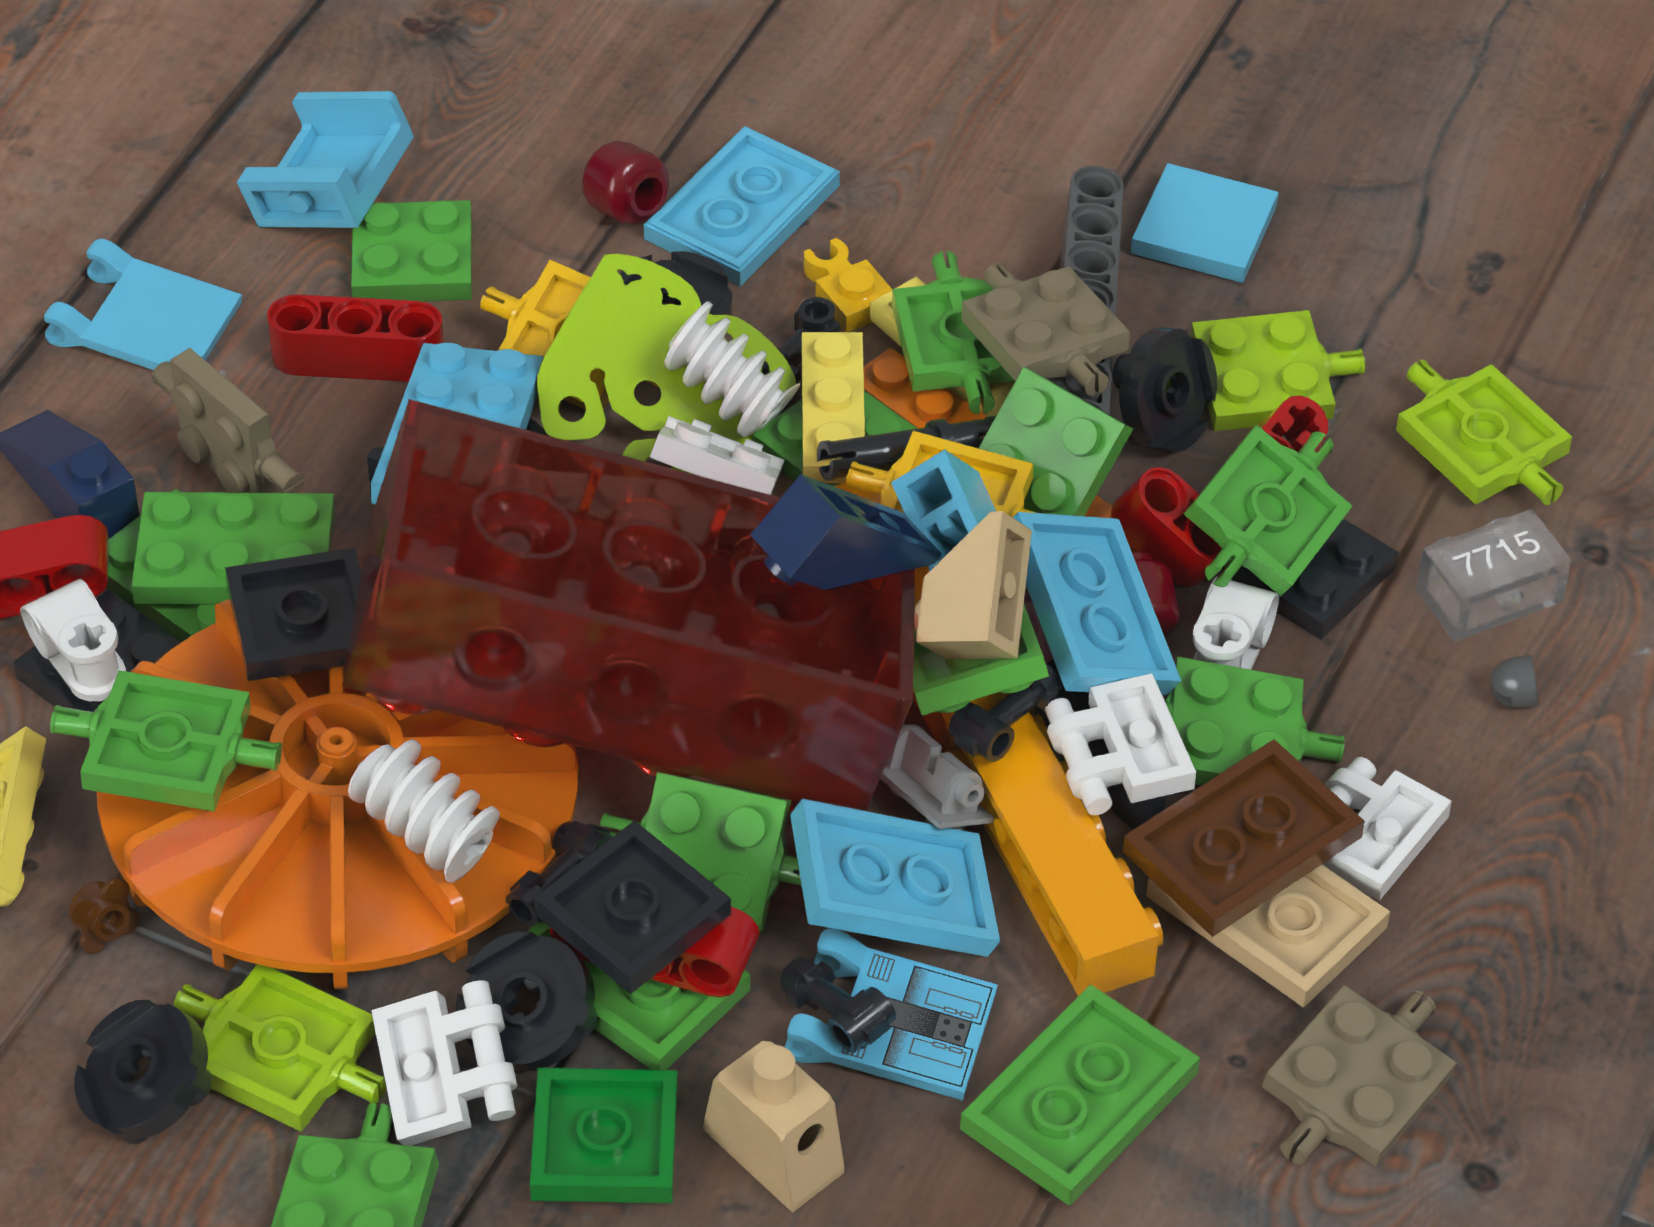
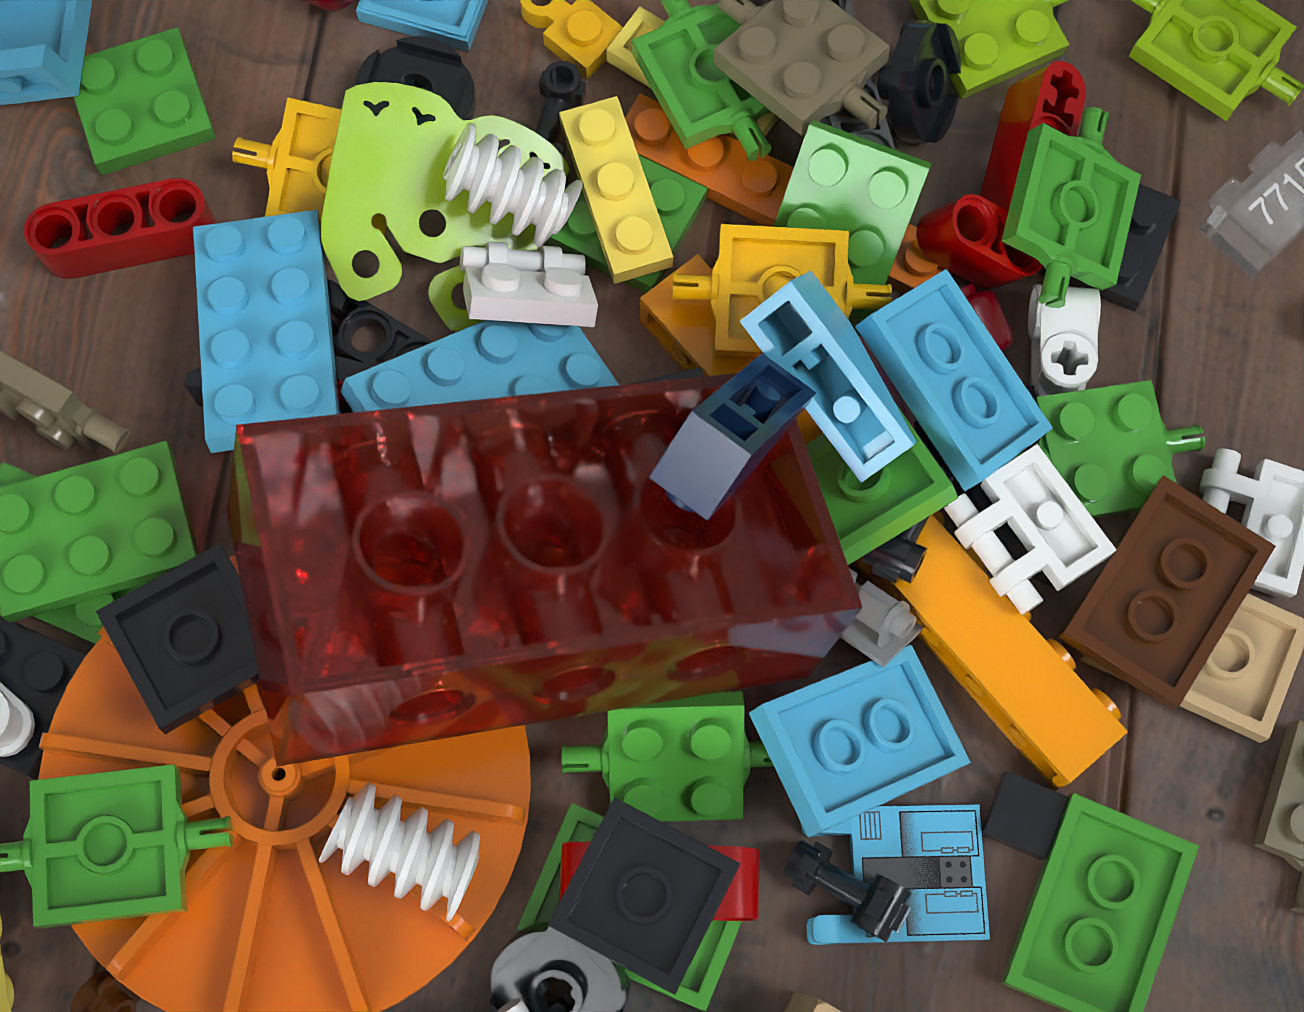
camera: 20 degrees left, 25 degrees up
(572, 844) = (554, 796): black bar -> none
(886, 449) = (702, 232): black pin -> none
(977, 593) = (877, 451): tan slope -> none
(1033, 999) = (1024, 815): none -> black tile

